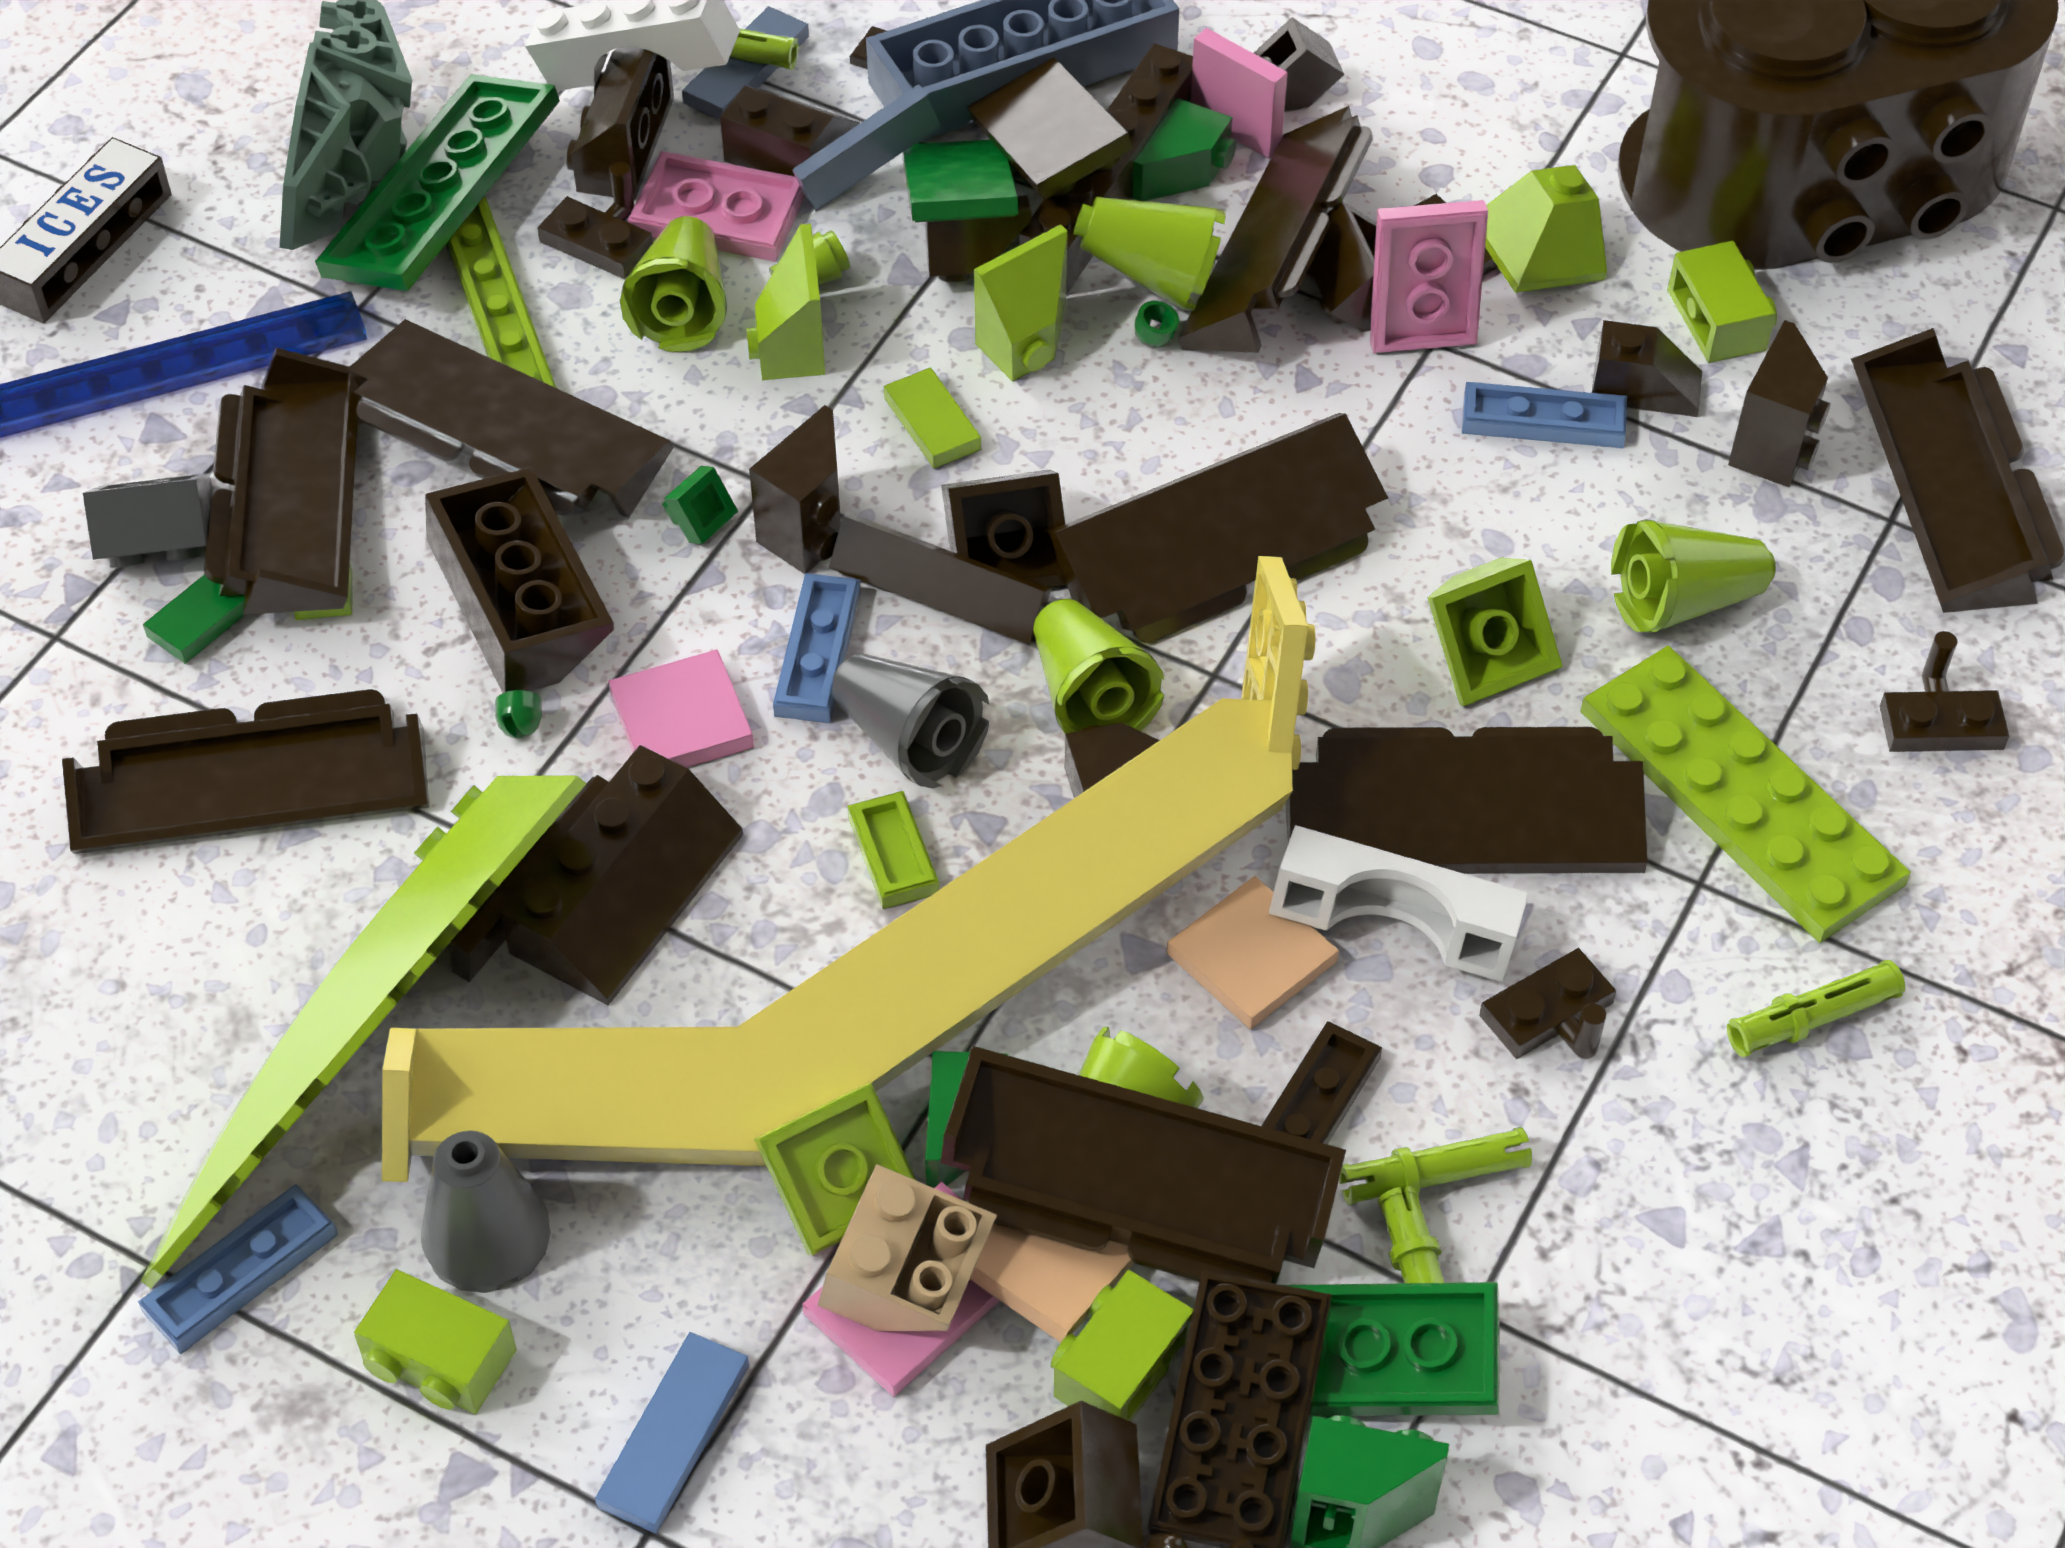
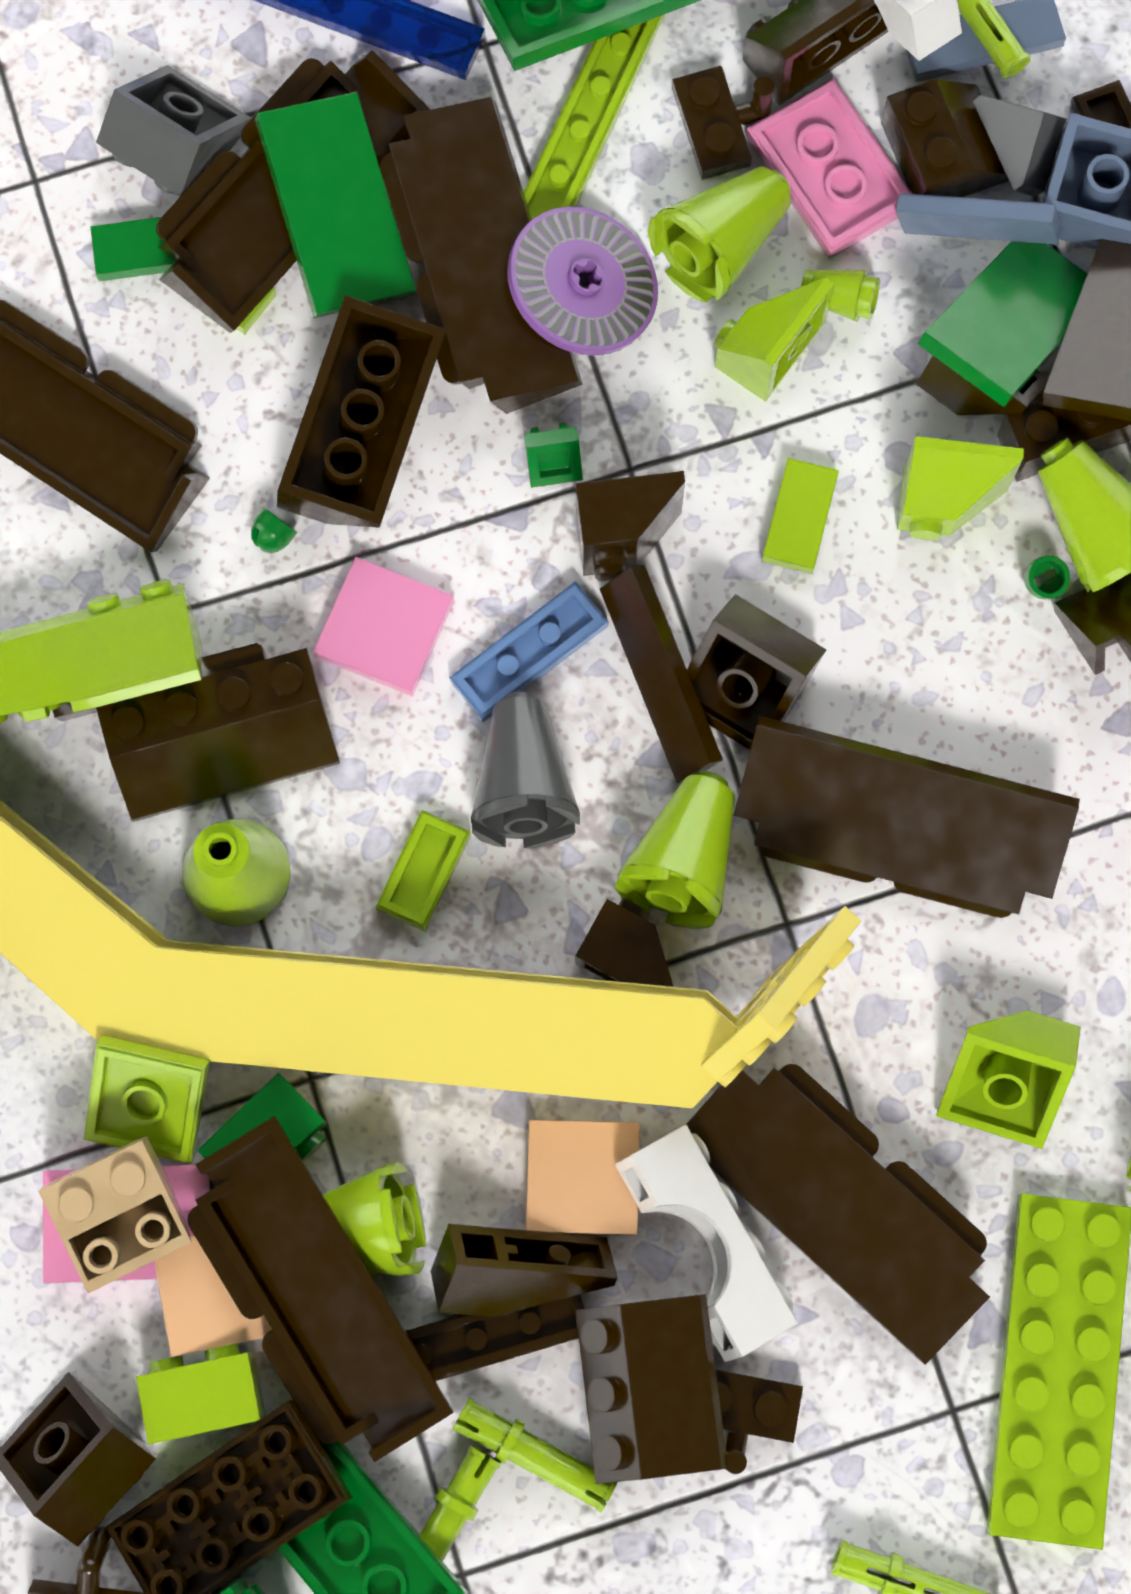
camera: 45 degrees right, 25 degrees up
(342, 461) = (334, 203): none -> green tile
(603, 382) = (547, 288): none -> piece
(734, 949) = (236, 872): none -> lime cone
(838, 85) = (1023, 141): none -> slope
(1270, 1047) = (514, 1269): none -> dark brown slope
(1474, 1023) = (651, 1389): none -> dark brown slope

